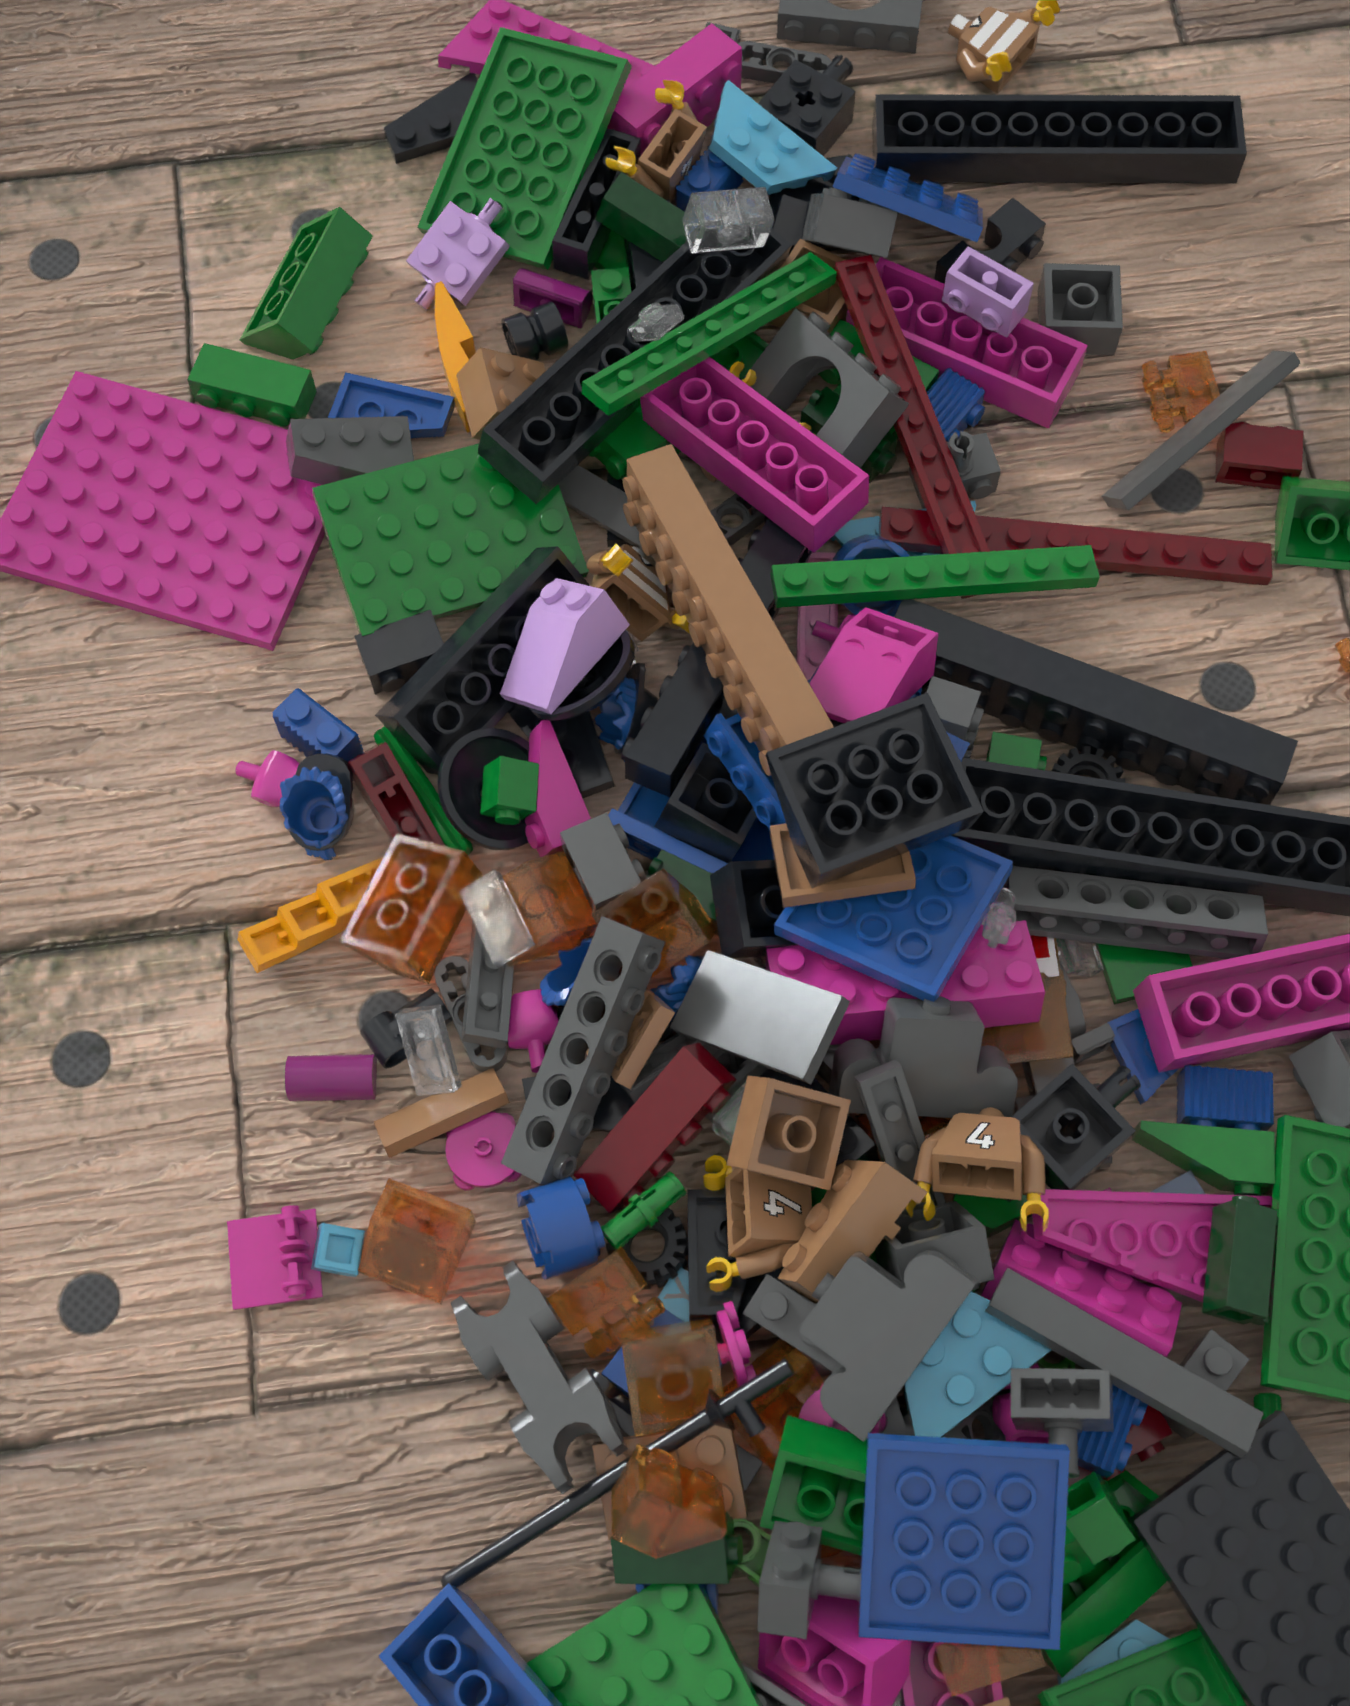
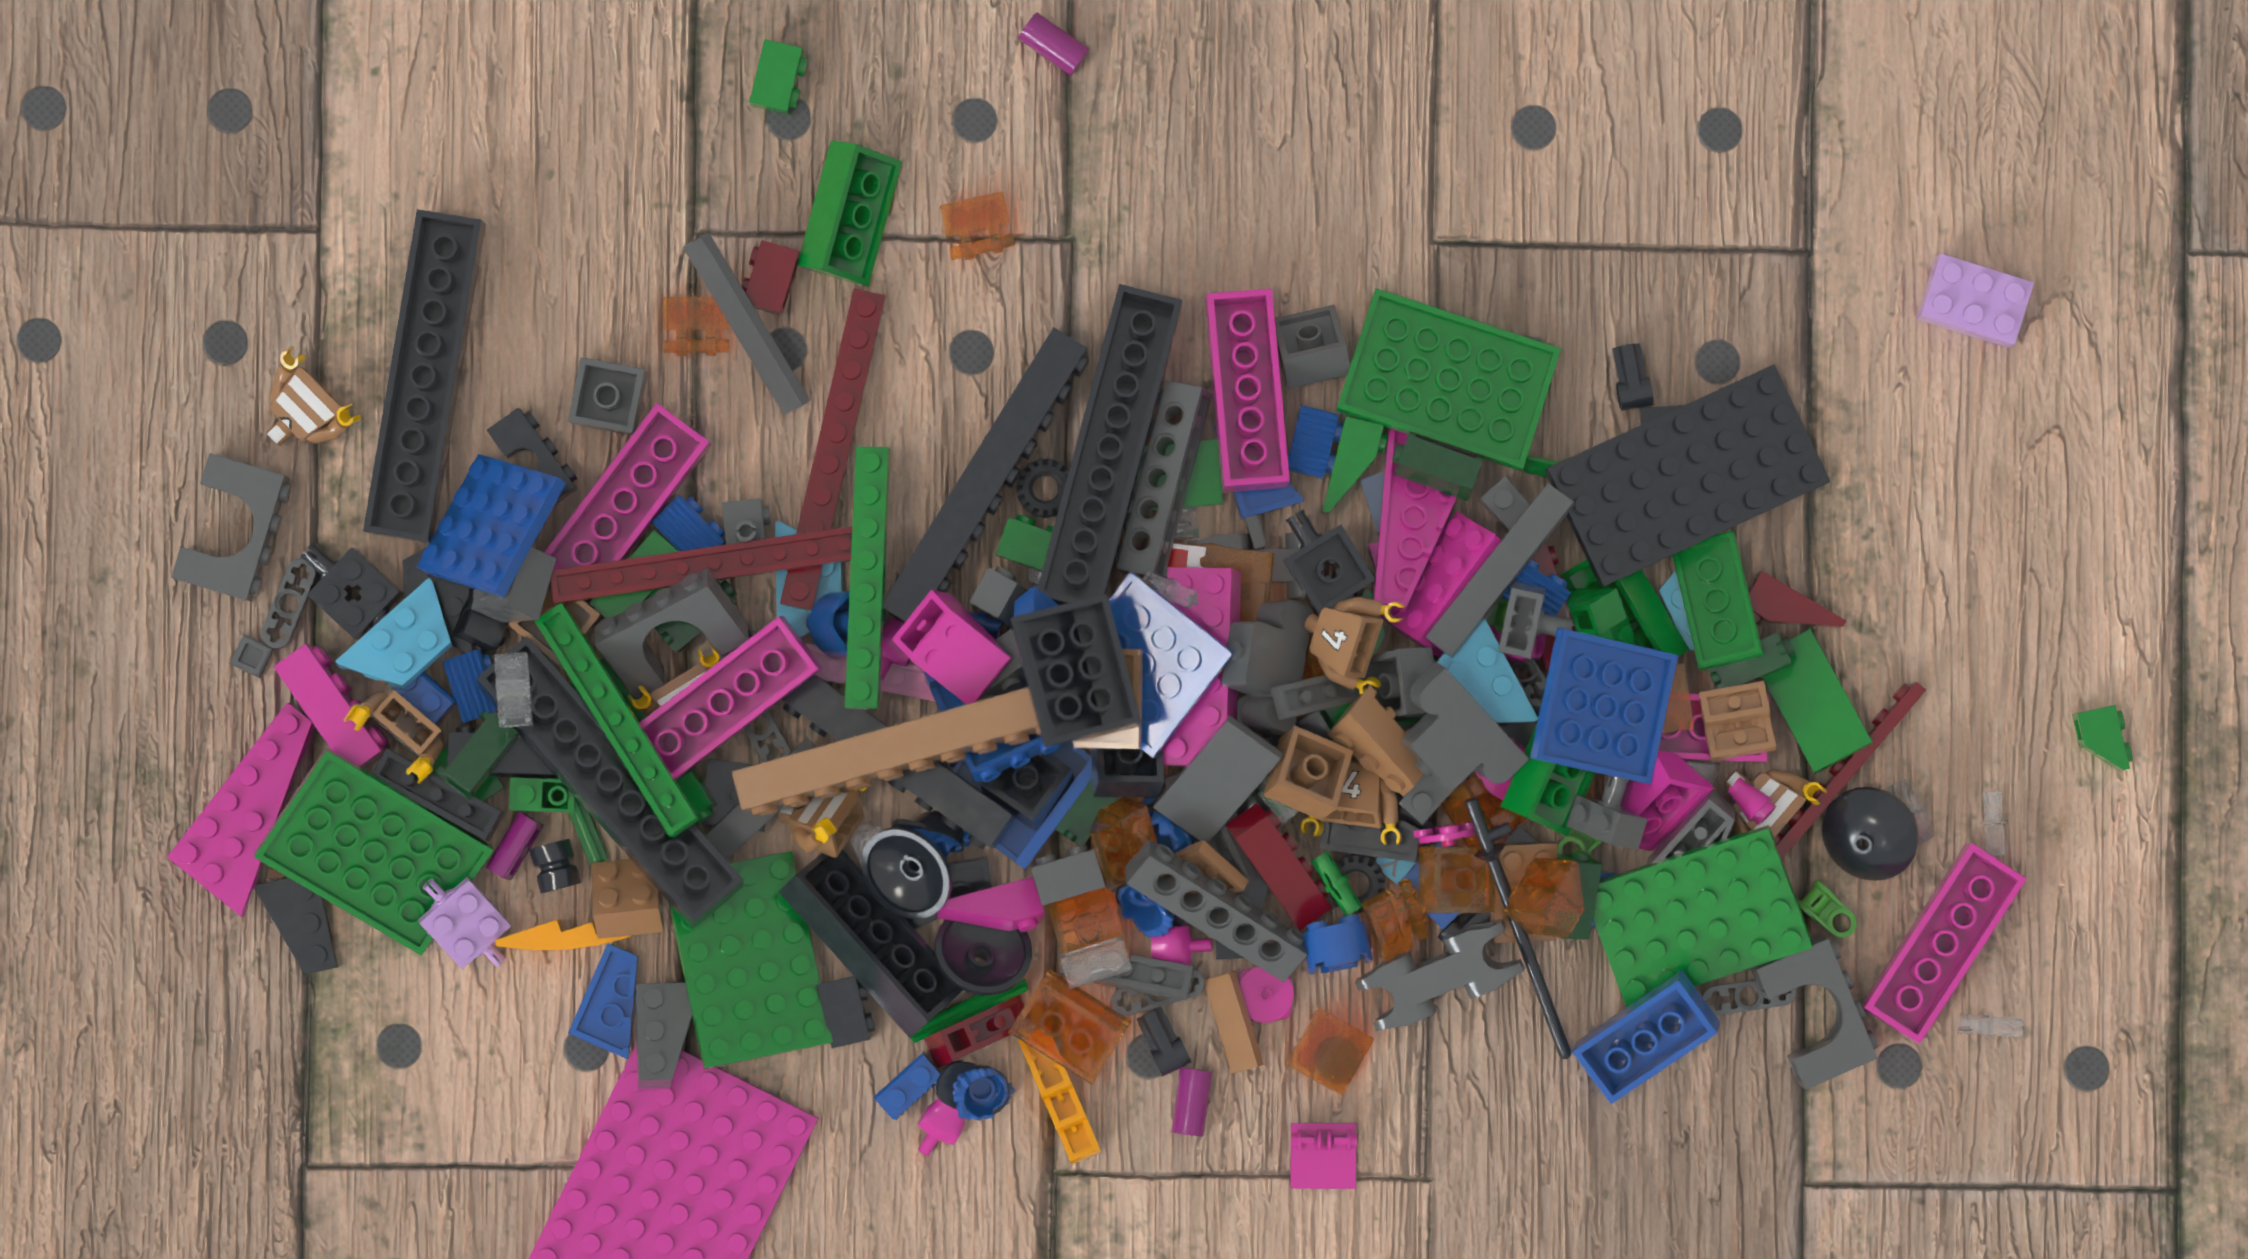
camera: 80 degrees left, 20 degrees up
(251, 385) = (568, 1114): green brick -> none
(308, 286) = (470, 1058): green slope -> none
(338, 1250) = (1324, 1108): medium azure tile -> none
(428, 1050) = (1189, 1026): clear plate -> none
(509, 789) = (992, 939): green brick -> none
(561, 643) = (885, 885): lavender slope -> none
(655, 321) = (609, 766): clear plate -> none
(987, 292) = (606, 481): lavender brick -> none

